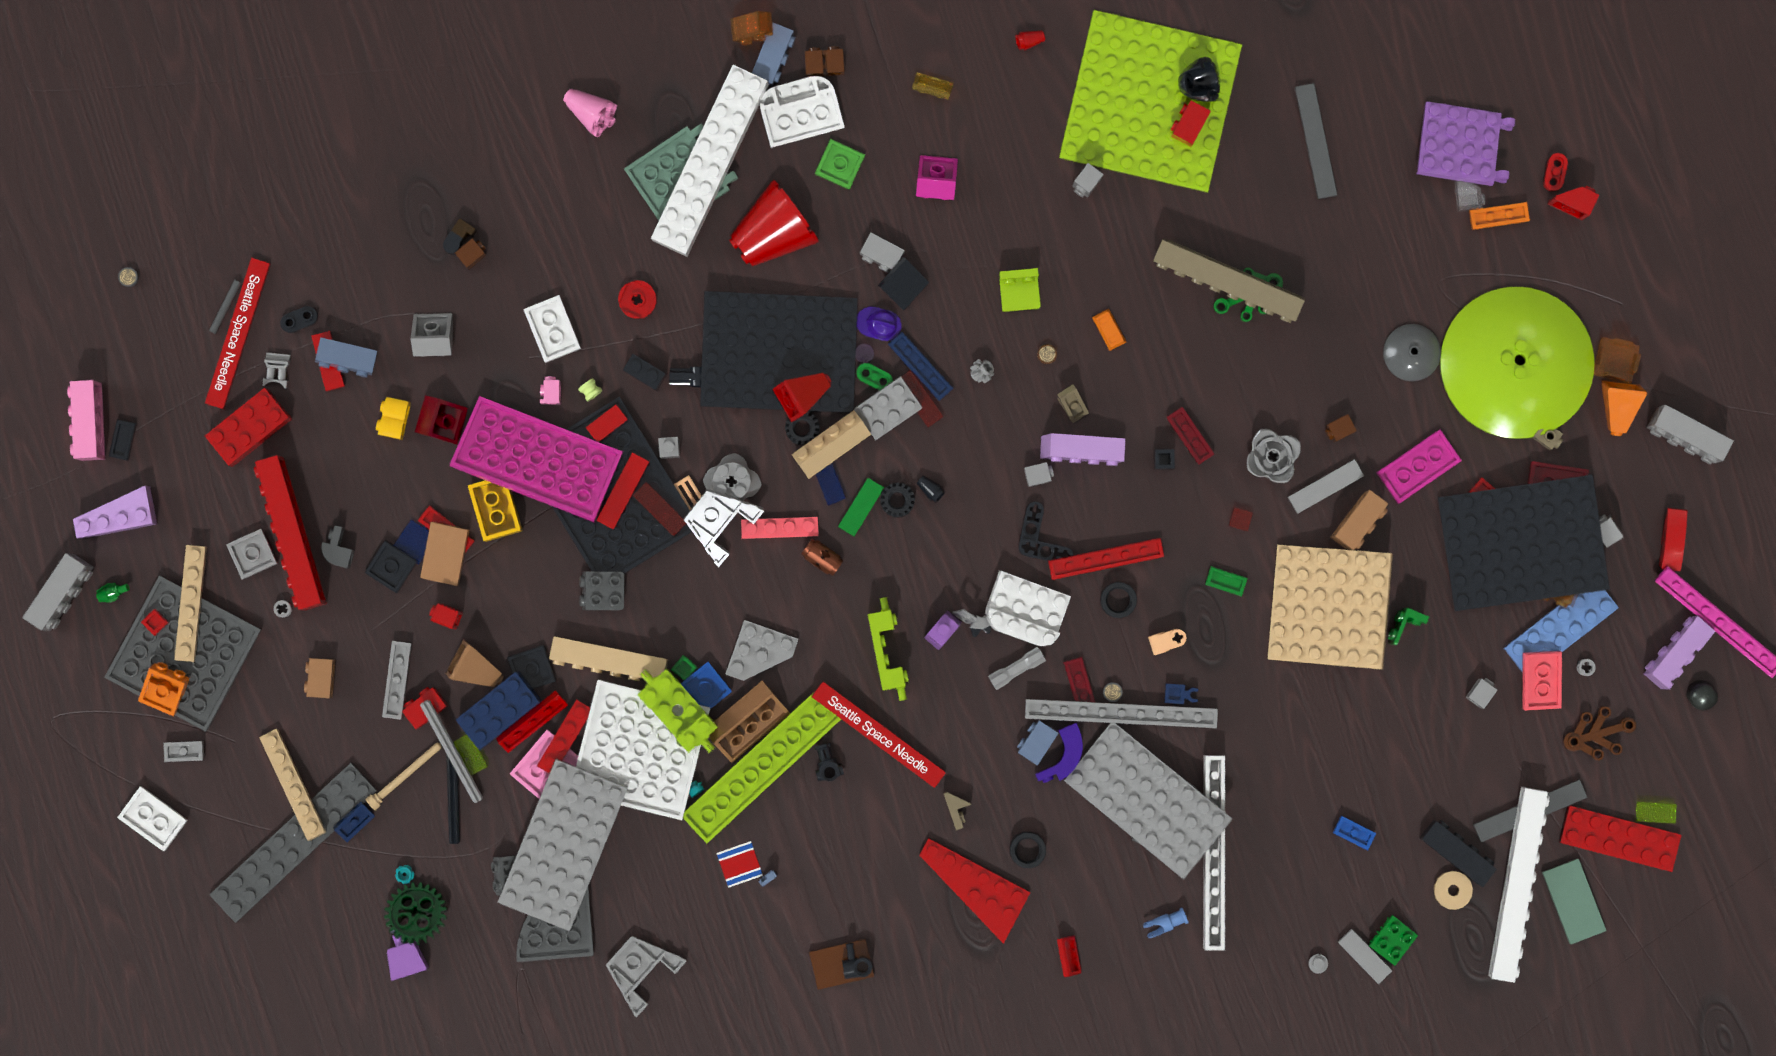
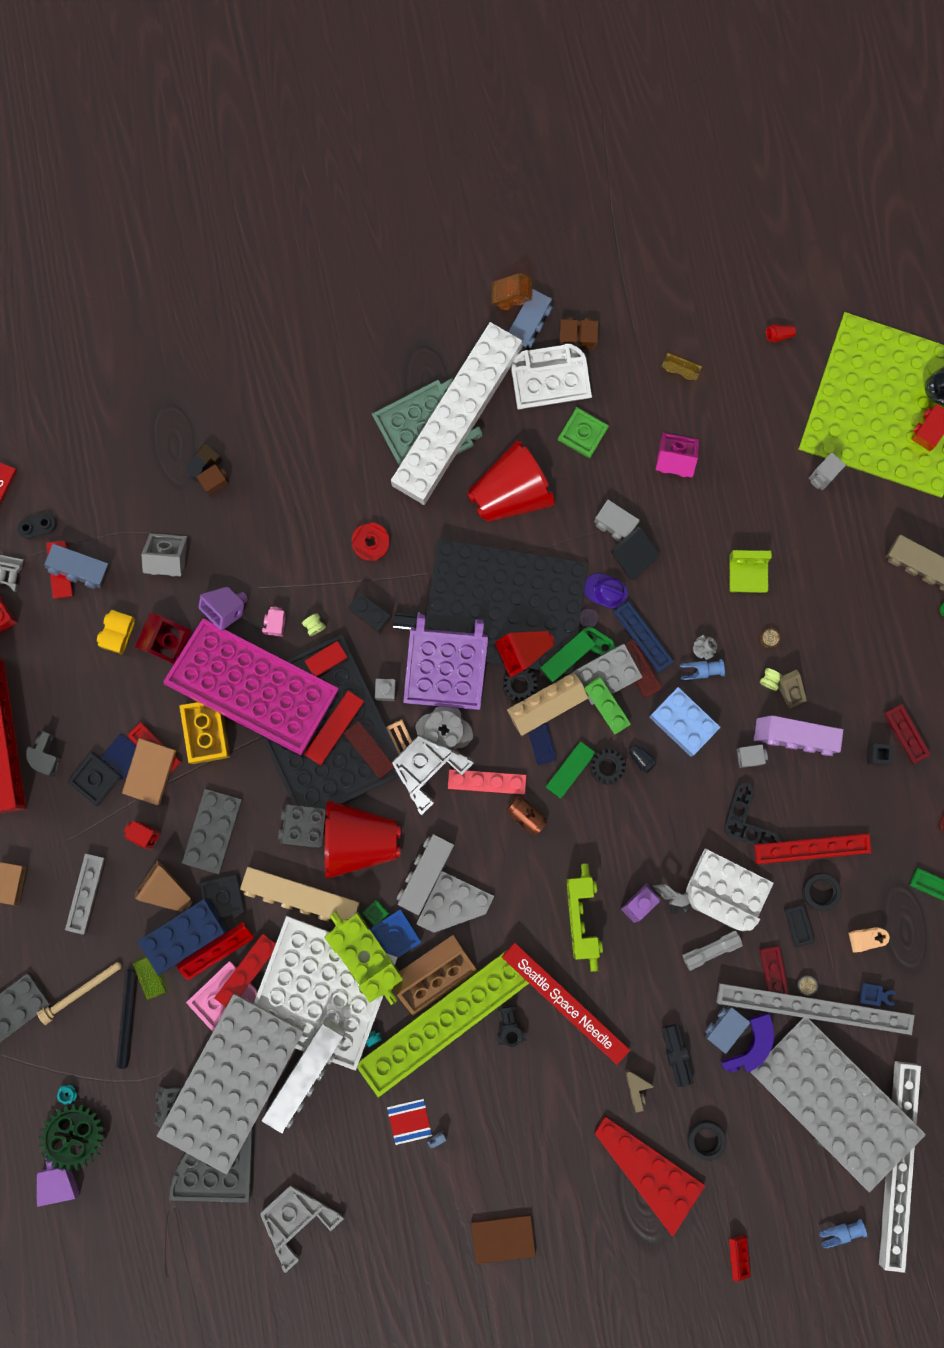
camera: 10 degrees right, 5 degrees down
(354, 821) = (22, 1034): dark blue plate -> none
(414, 711) = (109, 925): red brick -> none
(451, 751) = (129, 972): light grey axle -> none
(497, 382) = (222, 606): none -> medium lavender torso
(513, 605) = (212, 831): none -> dark grey plate
(552, 329) = (283, 561): white plate -> none
(591, 110) = (347, 355): bright pink cone -> none
(632, 829) = (302, 1077): none -> brick
(658, 598) = (357, 839): none -> red cone
(726, 419) = (445, 666): none -> medium lavender plate
(729, 624) = (425, 875): none -> light grey brick
(846, 394) = (567, 656): none -> green tile
(850, 964) = (513, 1243): black piece -> none
(890, 439) = (607, 705): none -> bright green plate
(968, 447) = (684, 722): none -> light blue brick
(983, 392) = (705, 669): none -> medium blue piece
(992, 772) = (677, 1055): none -> black piece
(1050, 395) = (771, 679): none -> yellowish green wheel
(1100, 635) = (799, 925): none -> black tile
(1109, 329) = (833, 620): orange tile -> none

